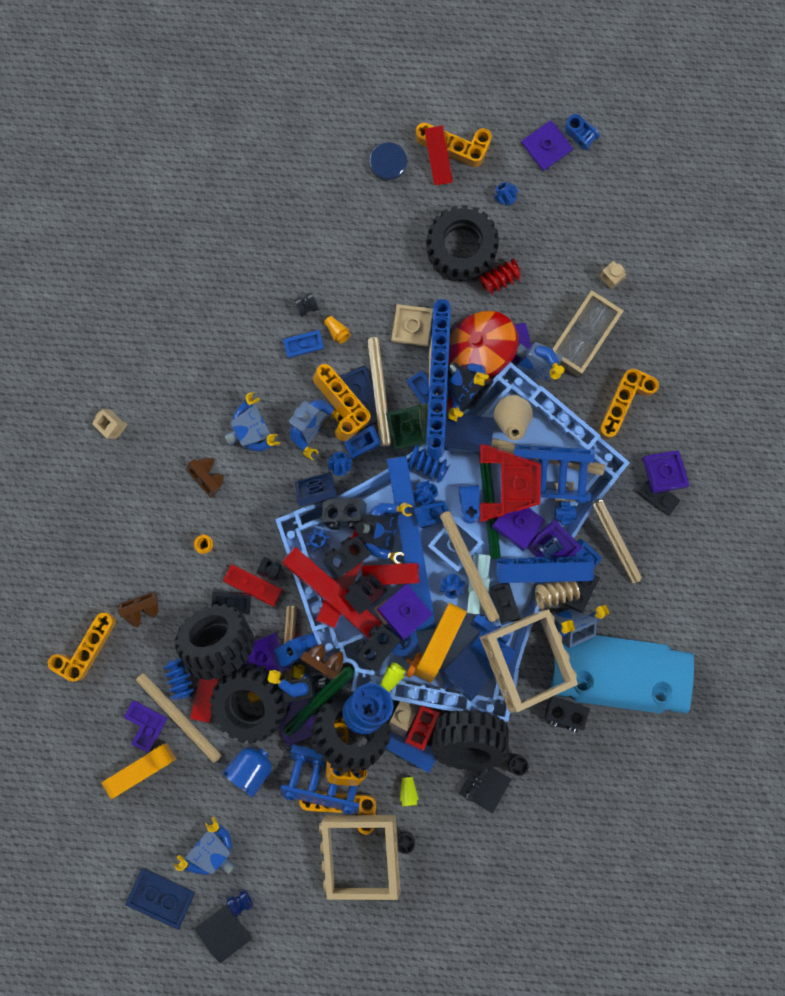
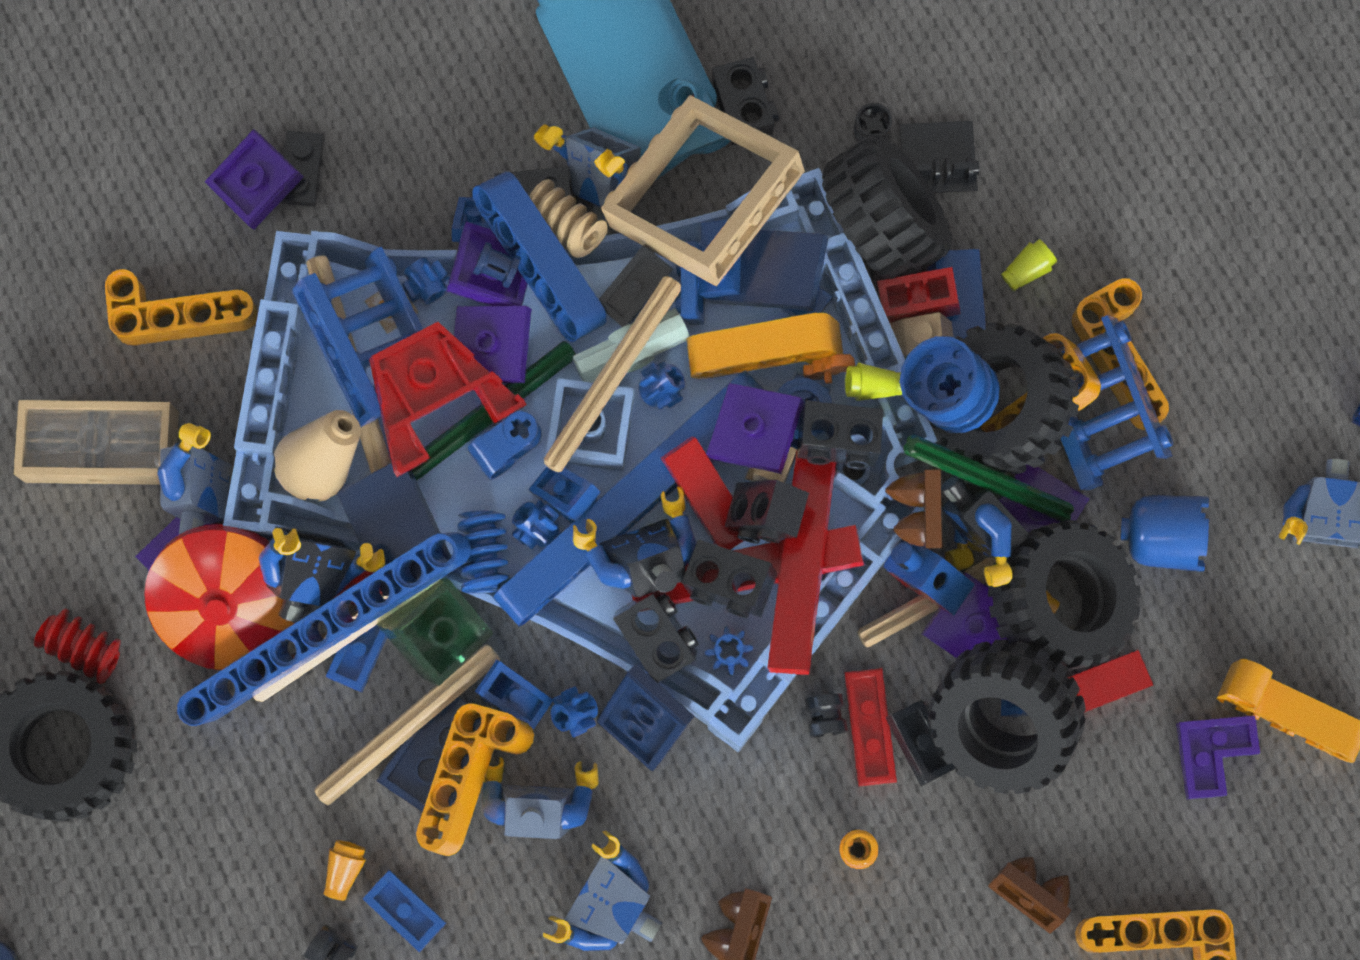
camera: 125 degrees left, 5 degrees down
(176, 715) = (1164, 707): tan axle -> none
(178, 680) = (1104, 744): blue piece -> none
(361, 821) = (1129, 304): tan window -> none
(407, 844) = (1112, 215): black wheel -> none
(412, 325) = (256, 743): tan plate -> none
(616, 541) = (418, 183): tan axle -> none

